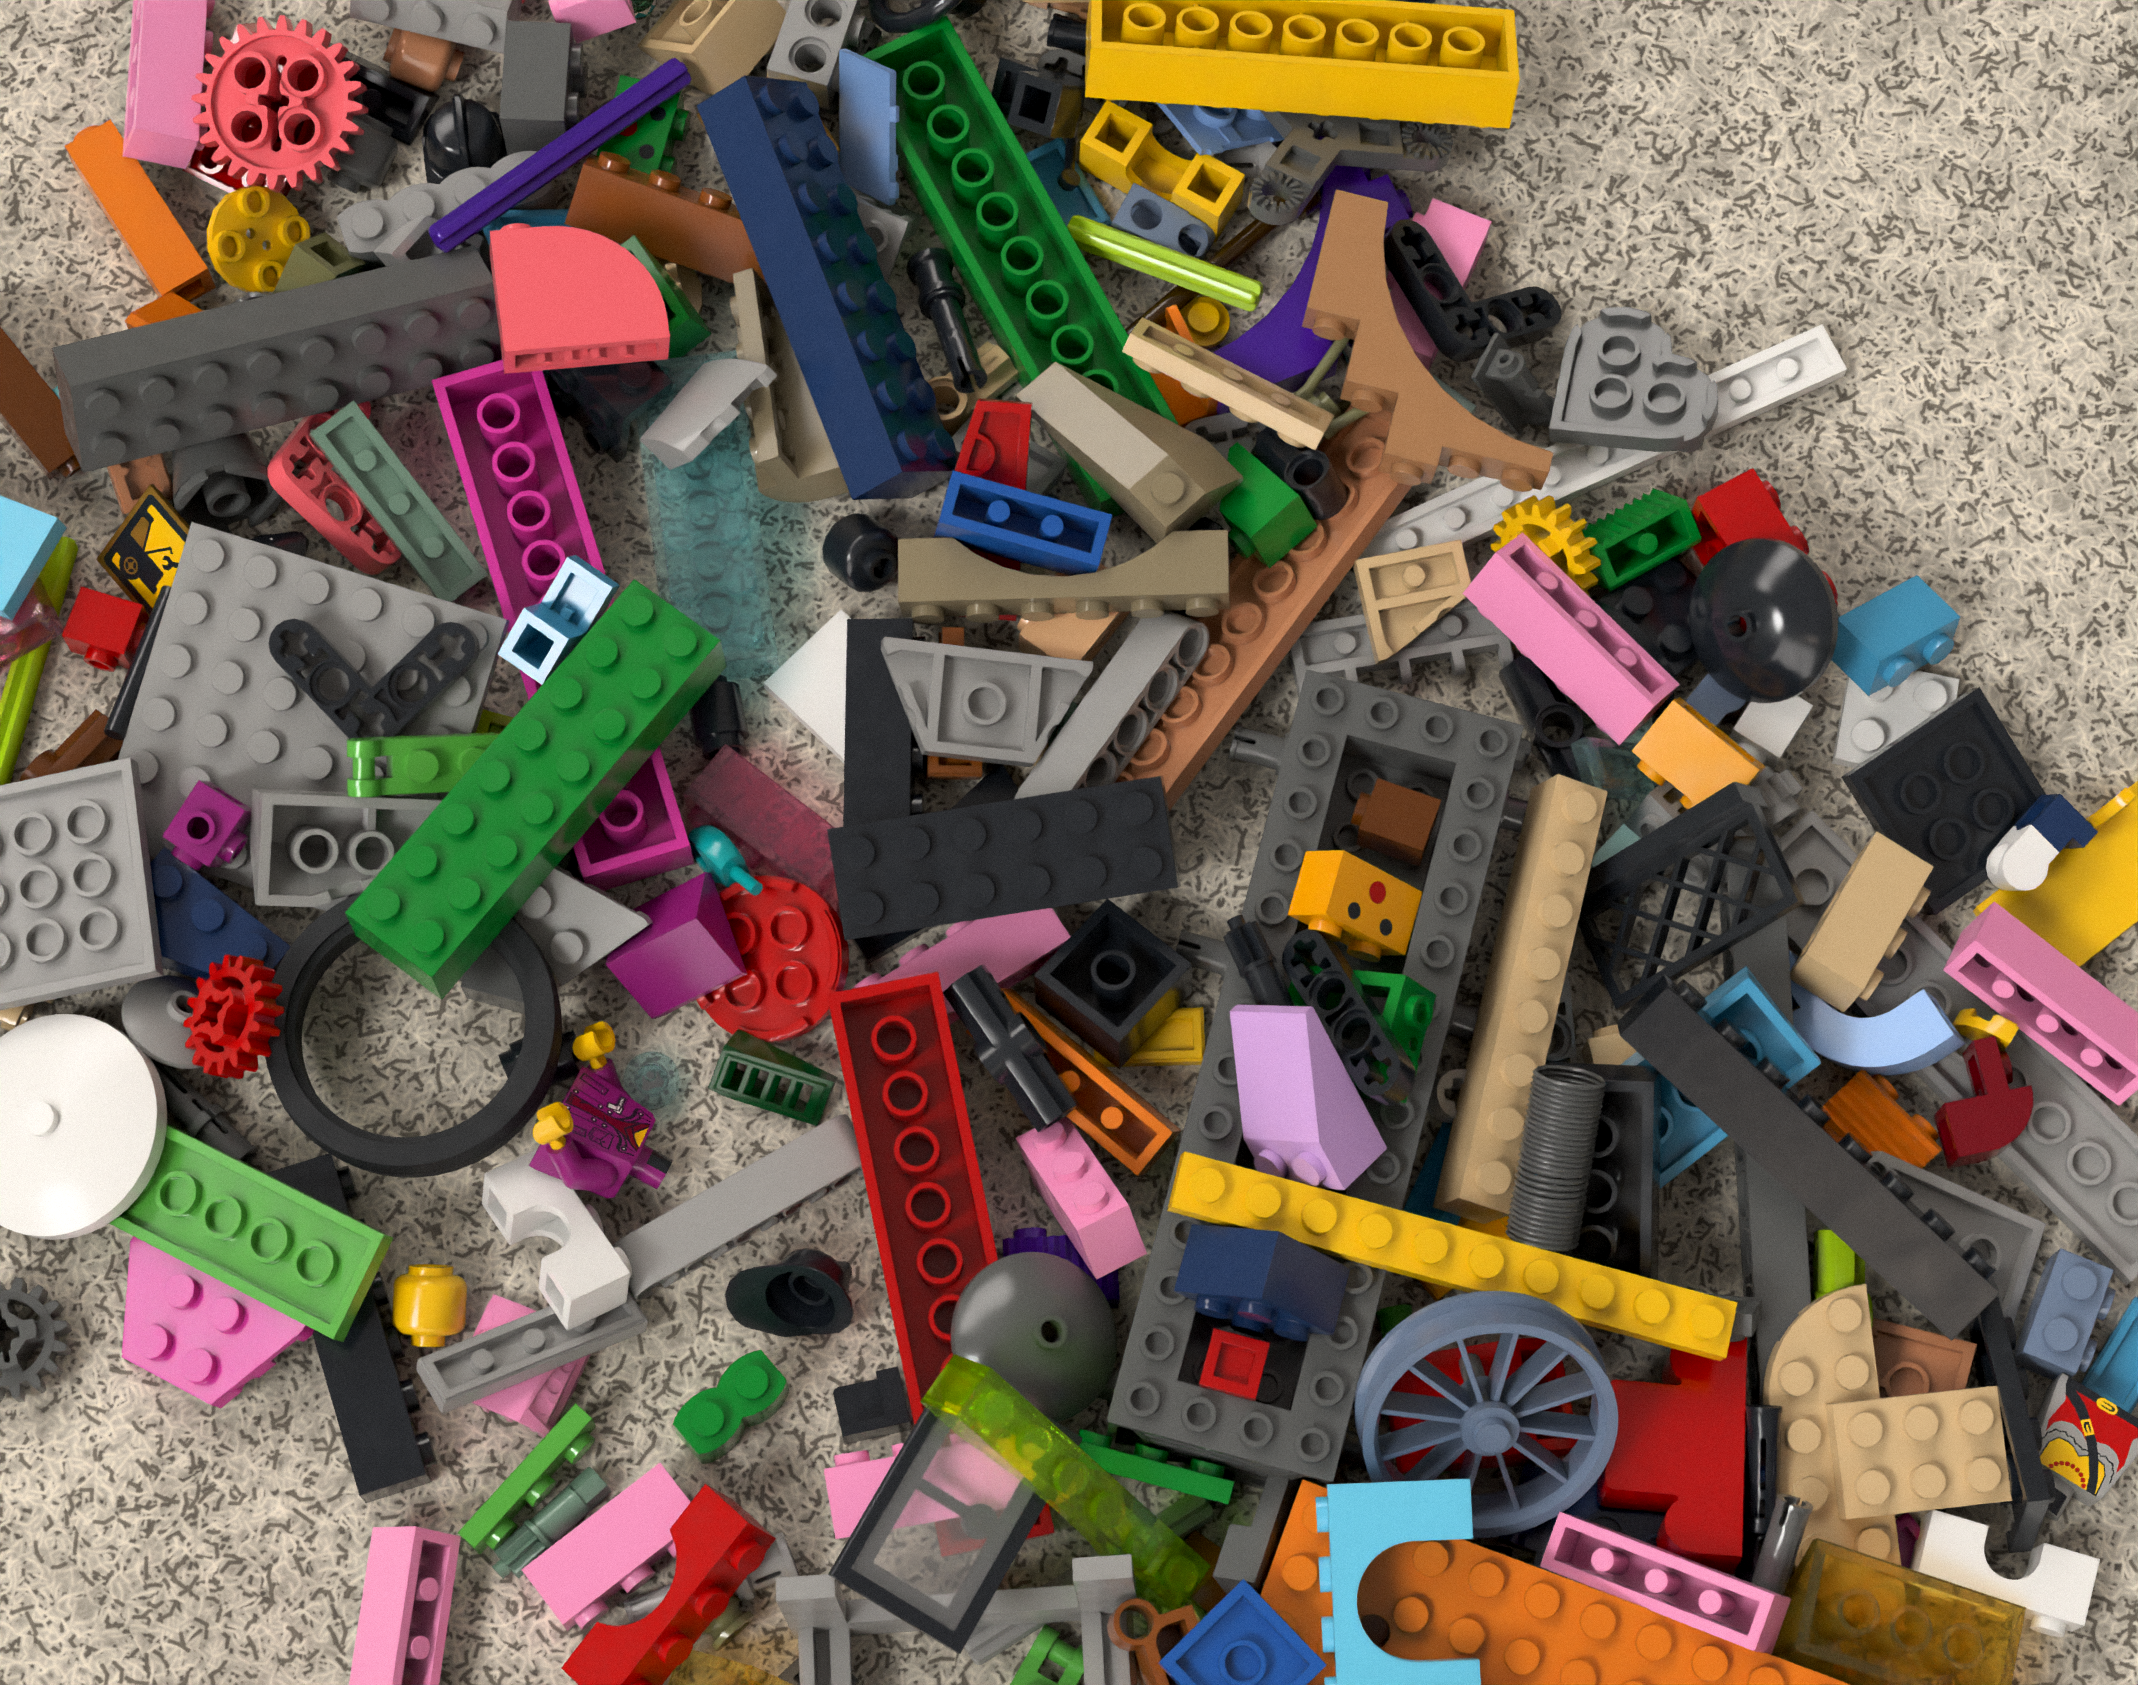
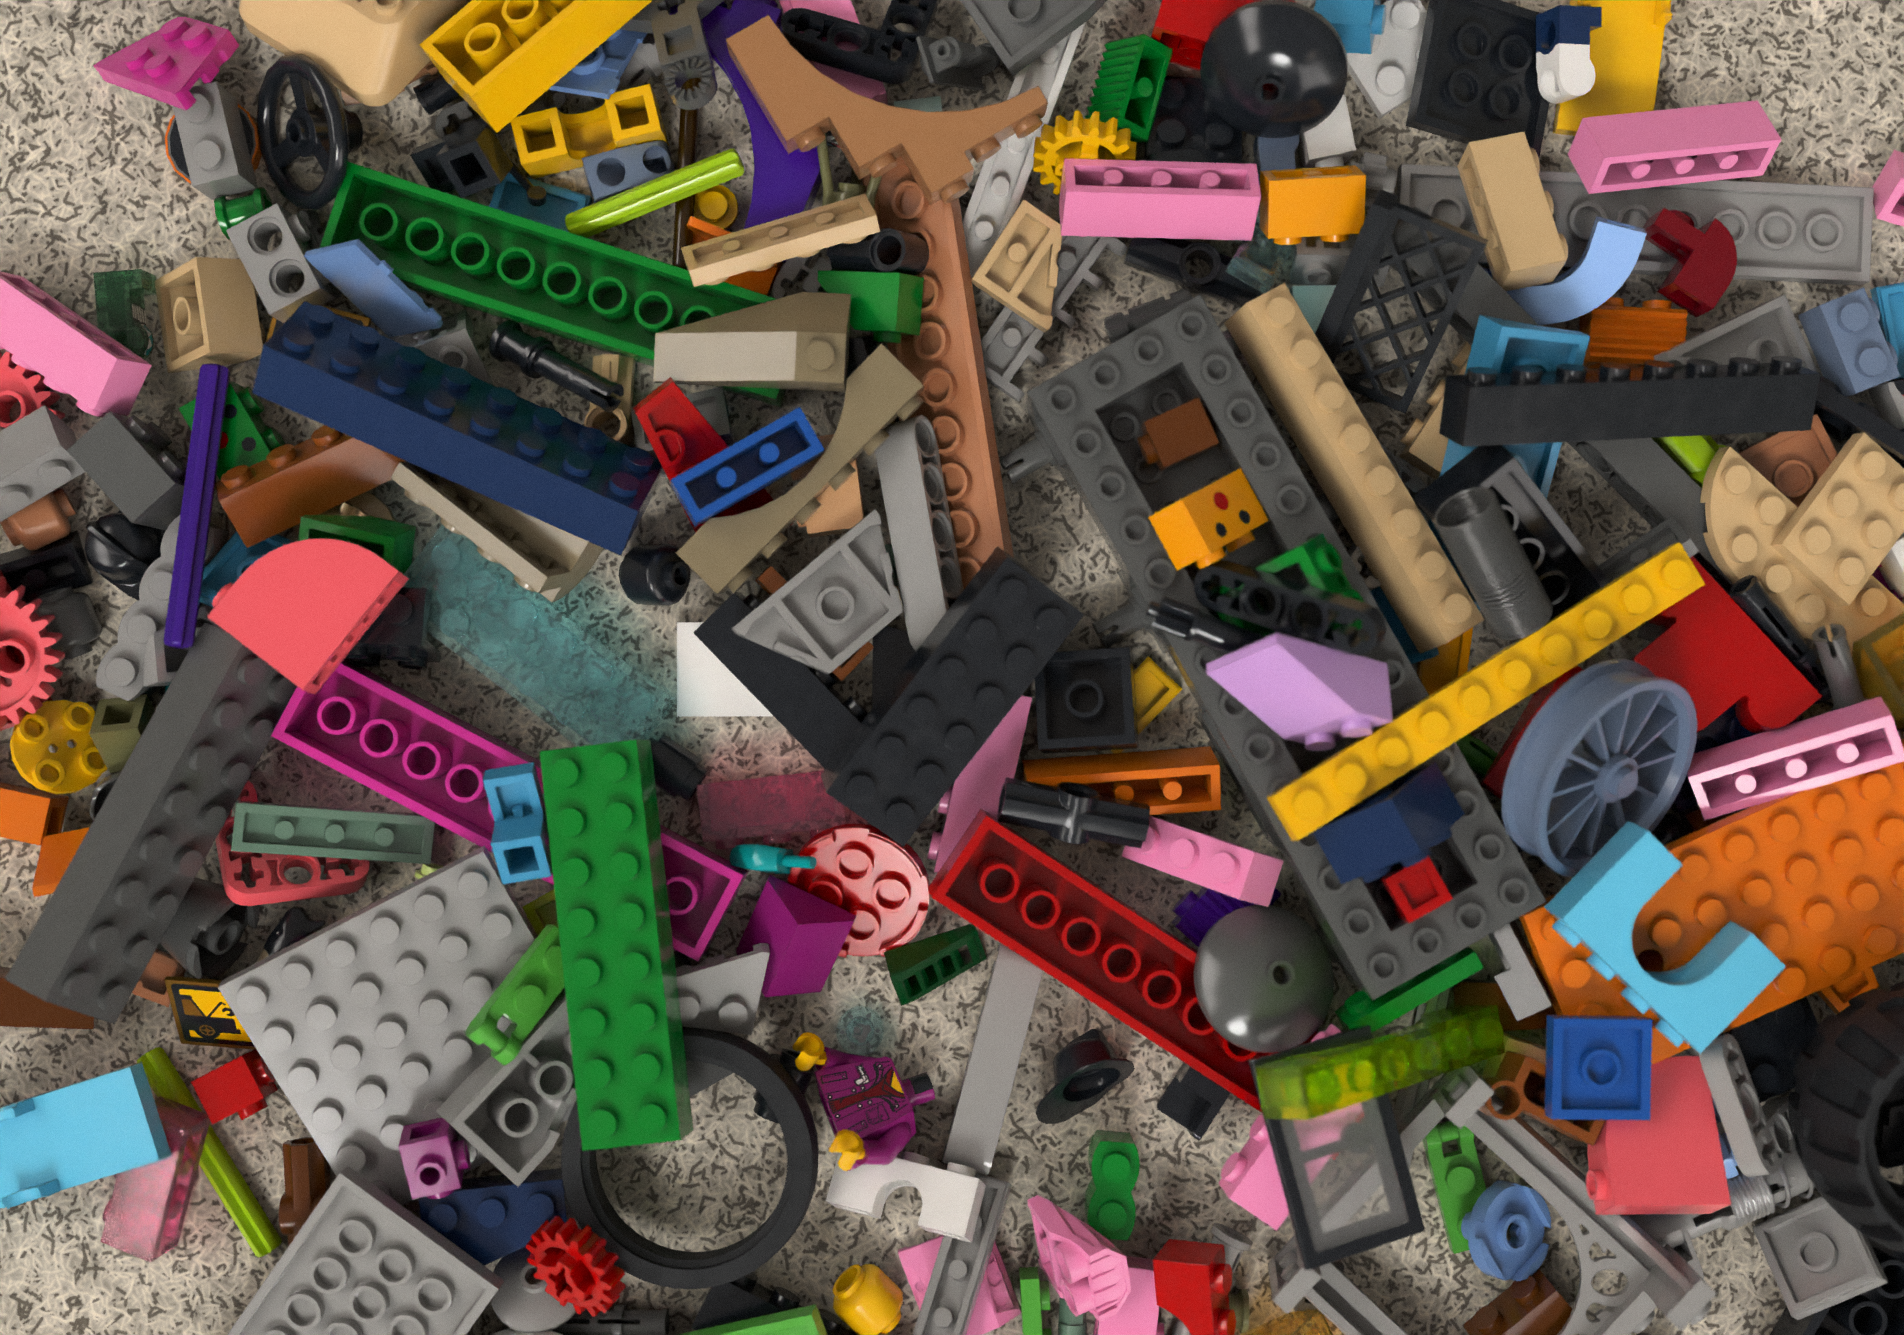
camera: 40 degrees left, 15 degrees up
(125, 702) = (298, 1131): black bar -> none
(384, 694) = (457, 975): black beam -> none
(643, 1430) = (1079, 1261): none -> bright pink slope
(704, 409) = (466, 590): light grey slope -> none
(1976, 1028) = (1645, 207): yellow tile -> none

